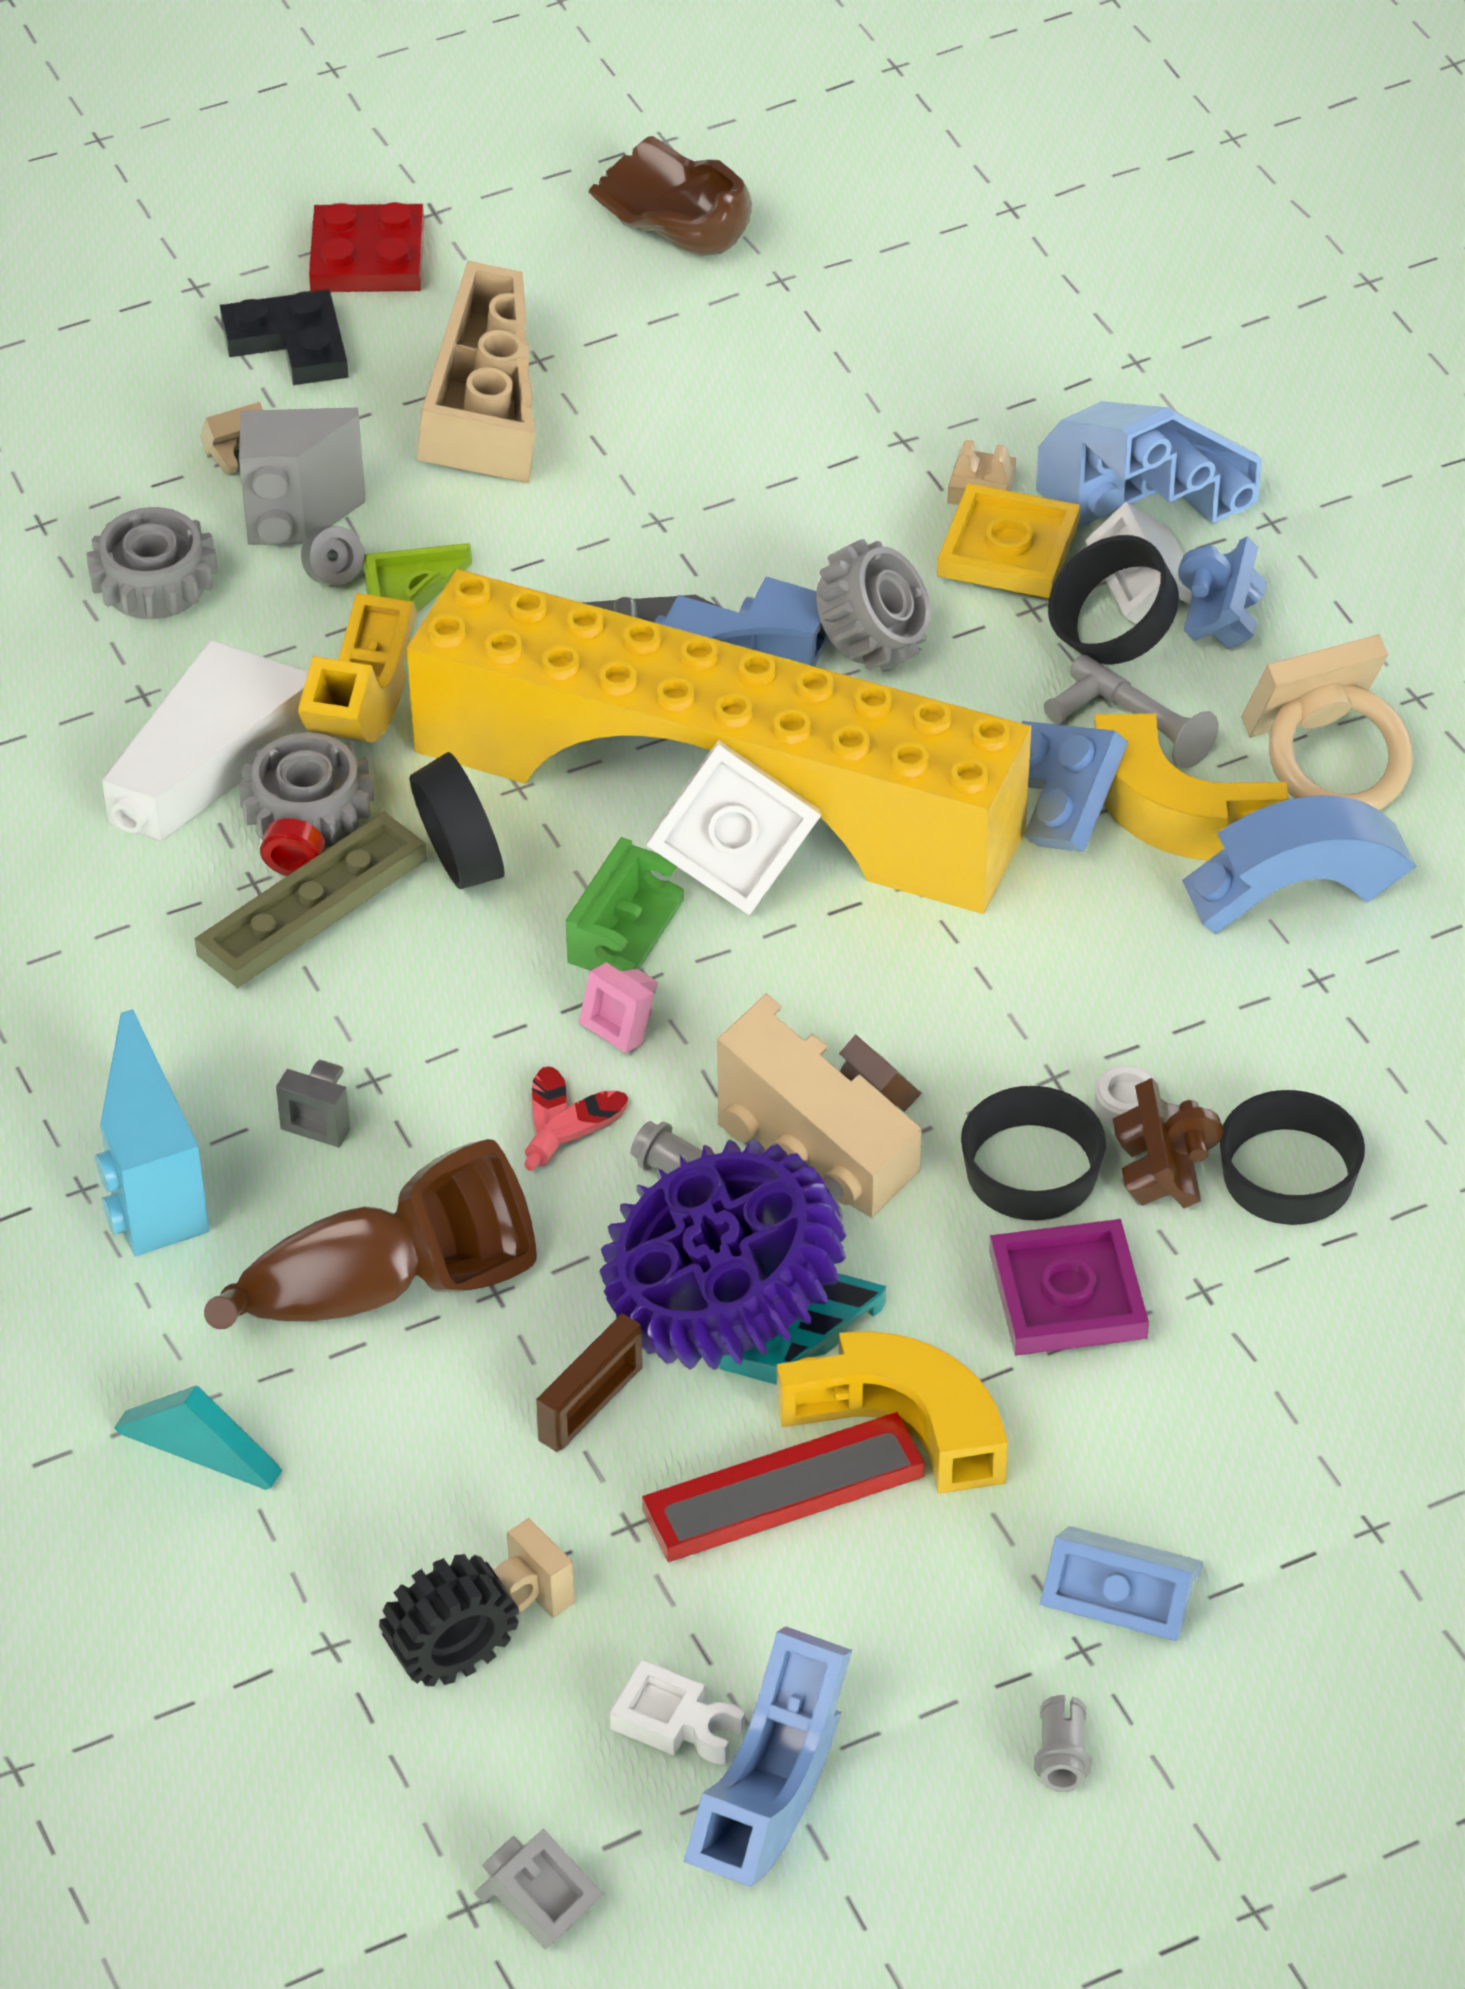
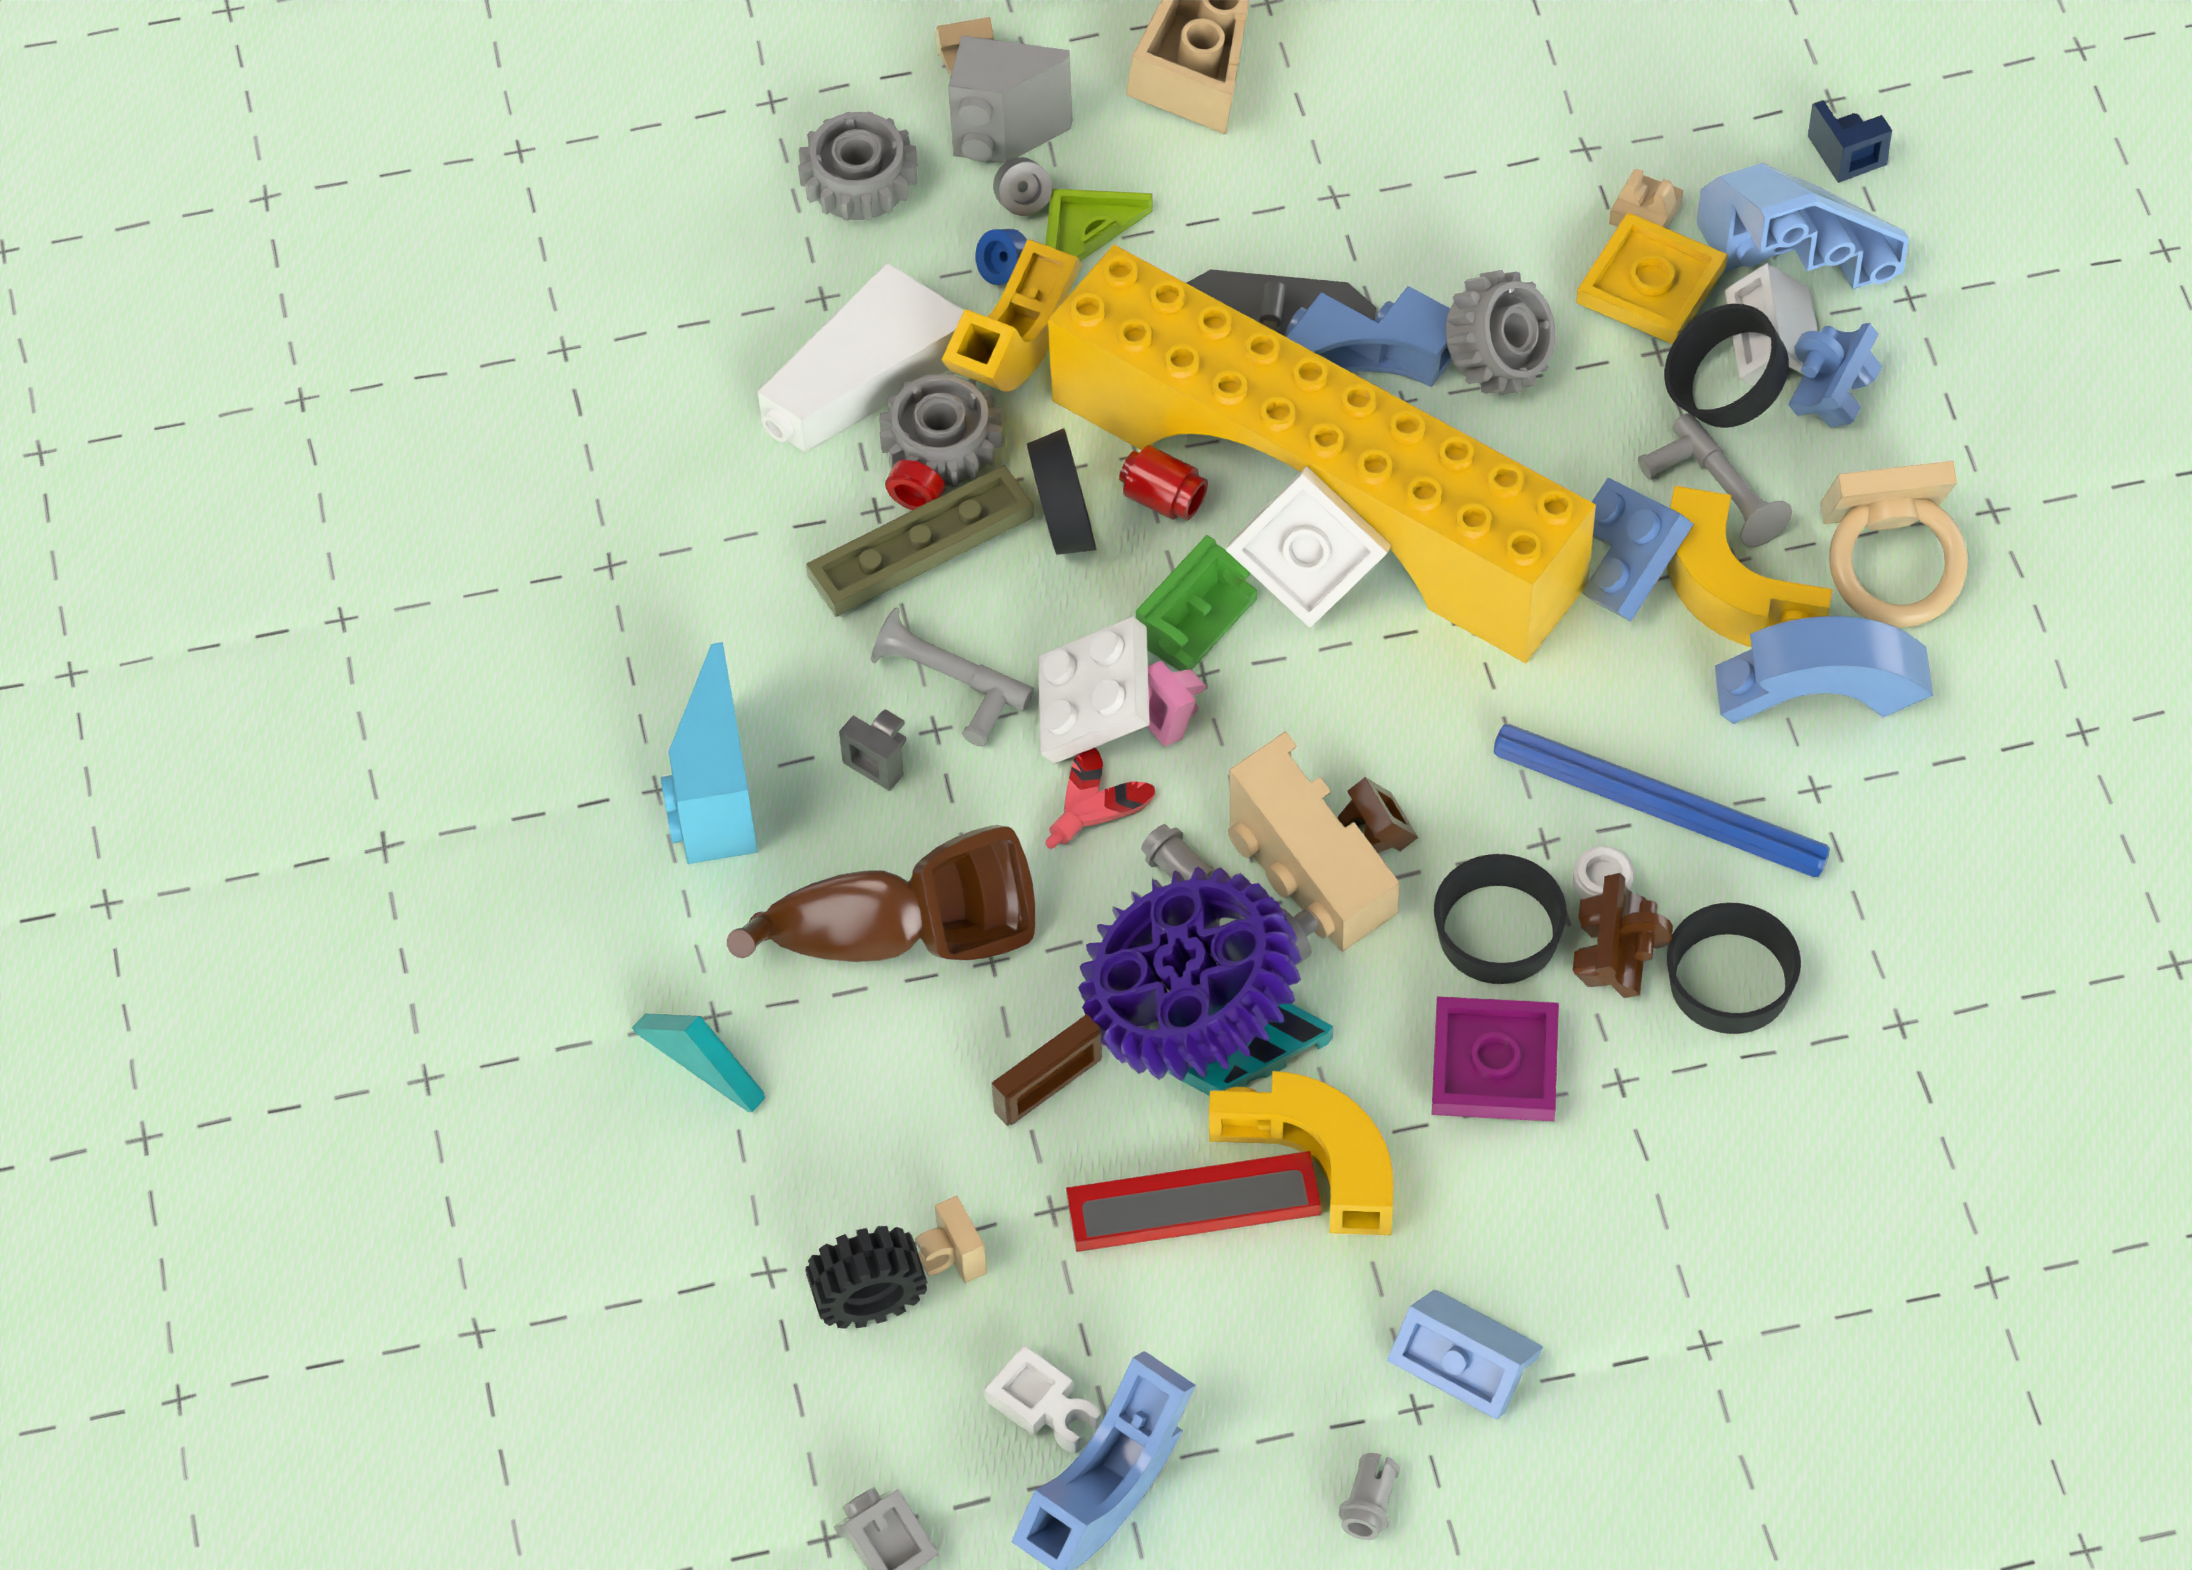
camera: 15 degrees right, 10 degrees up
(325, 620) = (998, 254): none -> blue tile
(431, 1025) = (998, 688): none -> light grey piece
(539, 1005) = (1093, 690): none -> white plate
(557, 803) = (1163, 483): none -> red brick
(1165, 1014) = (1662, 800): none -> blue axle
(1183, 389) = (1849, 143): none -> dark blue panel

